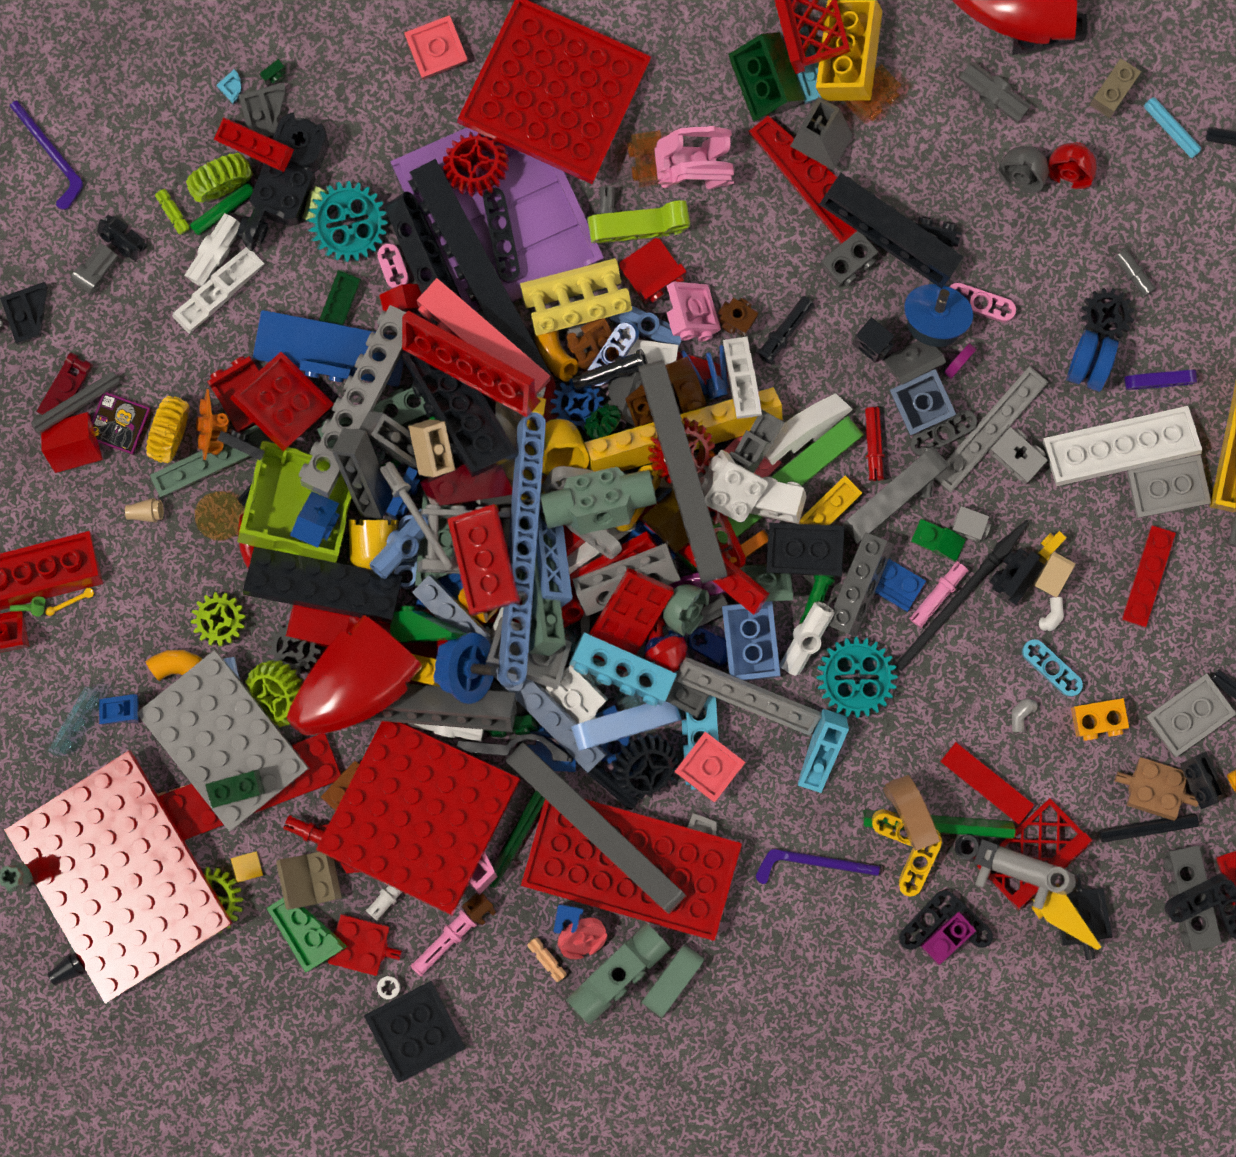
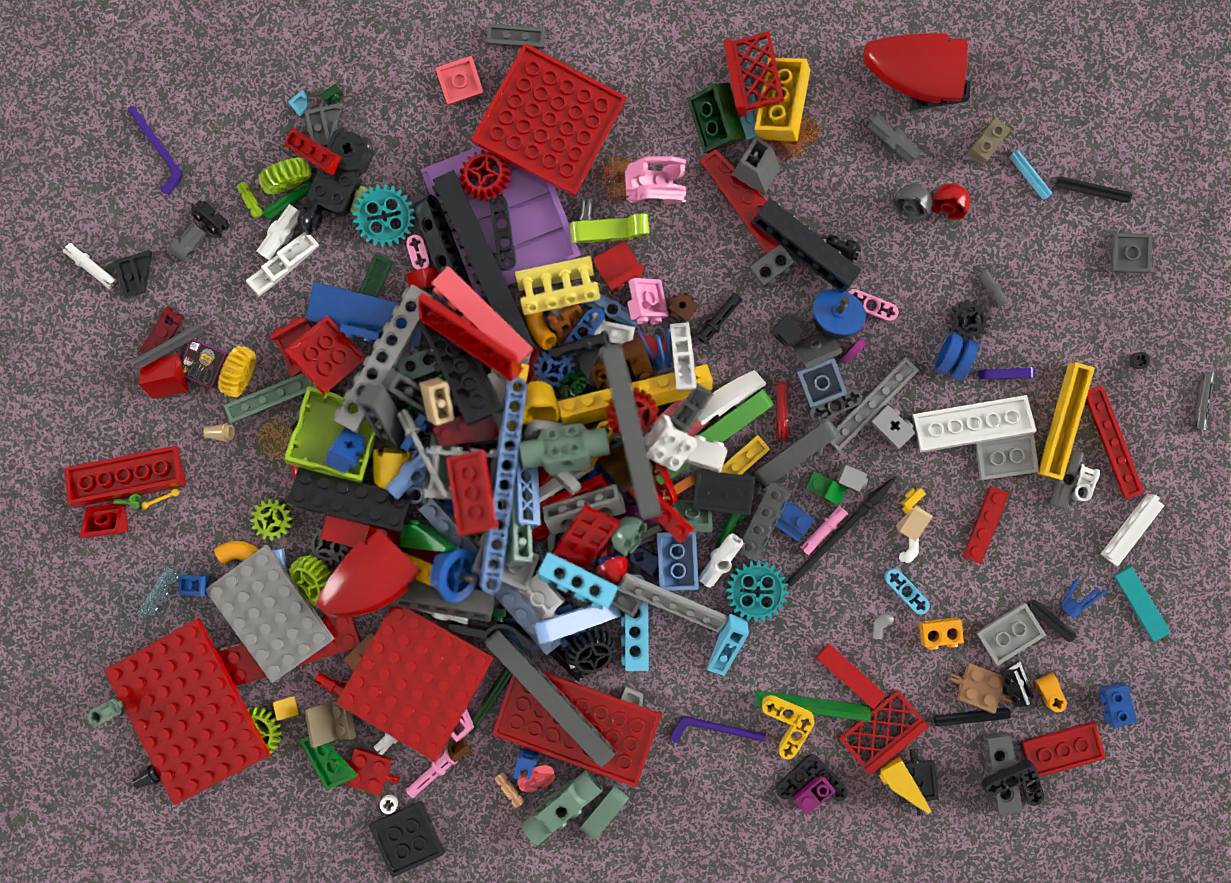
camera: 10 degrees right, 5 degrees up
(210, 428) = (270, 374): orange hinge -> none
(235, 788) = (274, 655): dark green brick -> none
(240, 442) = (291, 387): black wing -> none
(709, 767) = (640, 656): coral plate -> none
(912, 812) = (793, 700): medium nougat arch -> none
(1010, 587) = (882, 530): black brick -> none
(1016, 865) = (854, 736): light grey piece -> none

